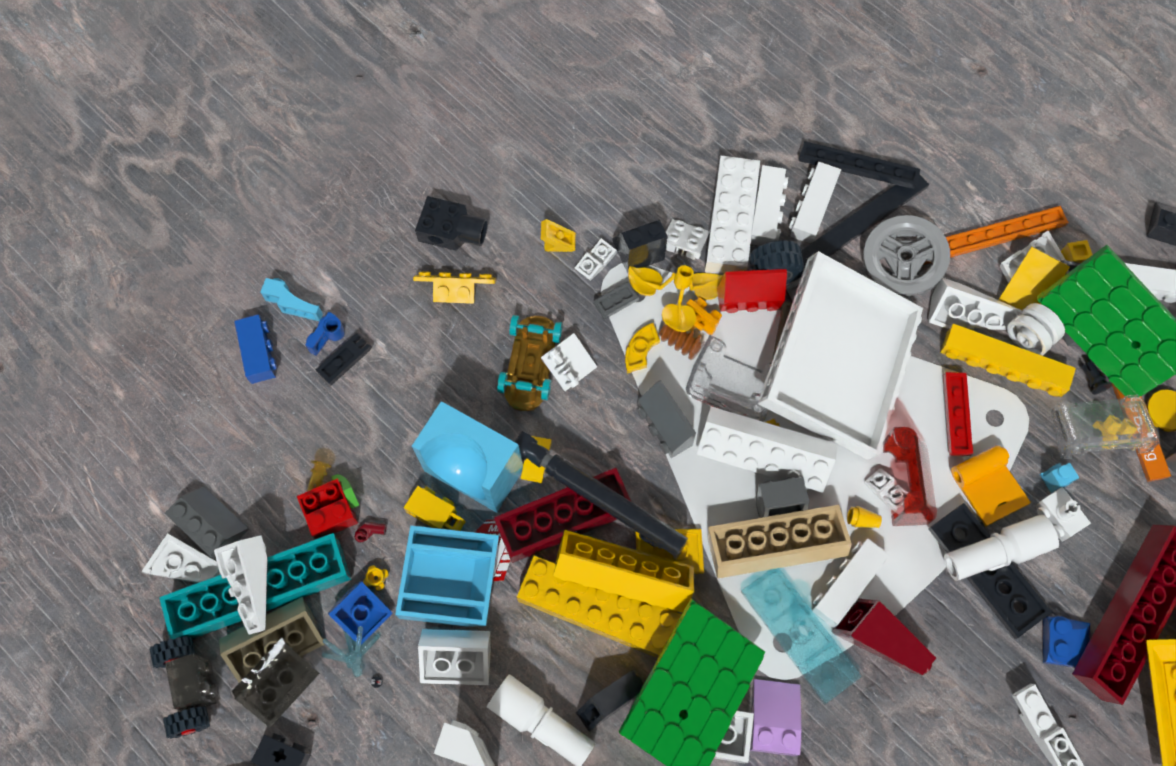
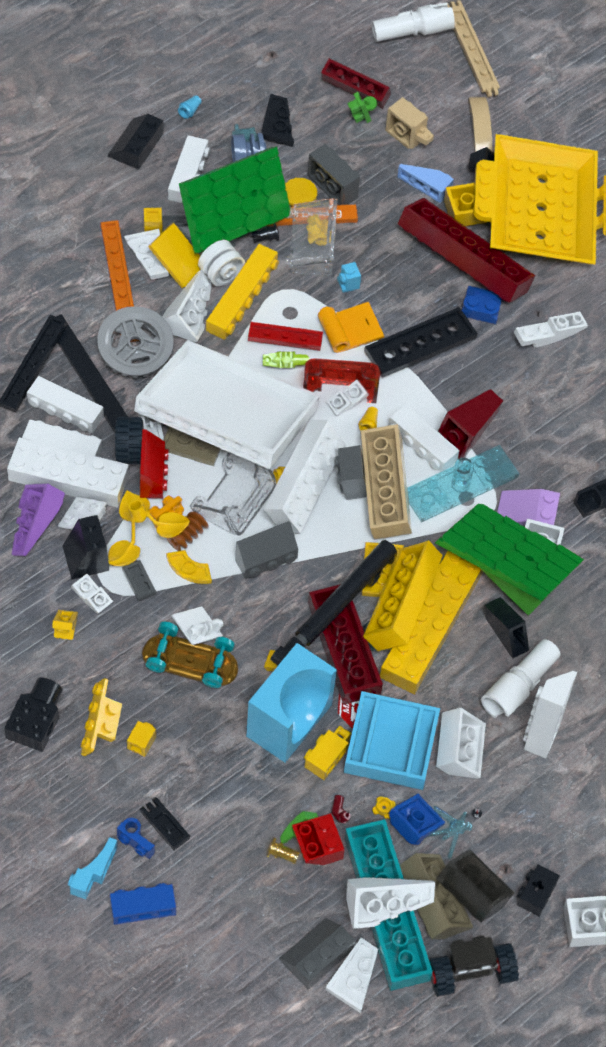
camera: 90 degrees left, 10 degrees down
(434, 325) = (141, 738): none -> yellow brick
(687, 197) = (38, 508): none -> medium lavender wedge
(925, 417) = (284, 359): none -> lime hinge
(1014, 543) = (407, 316): white piece -> none
(1063, 514) = (380, 282): white brick -> none

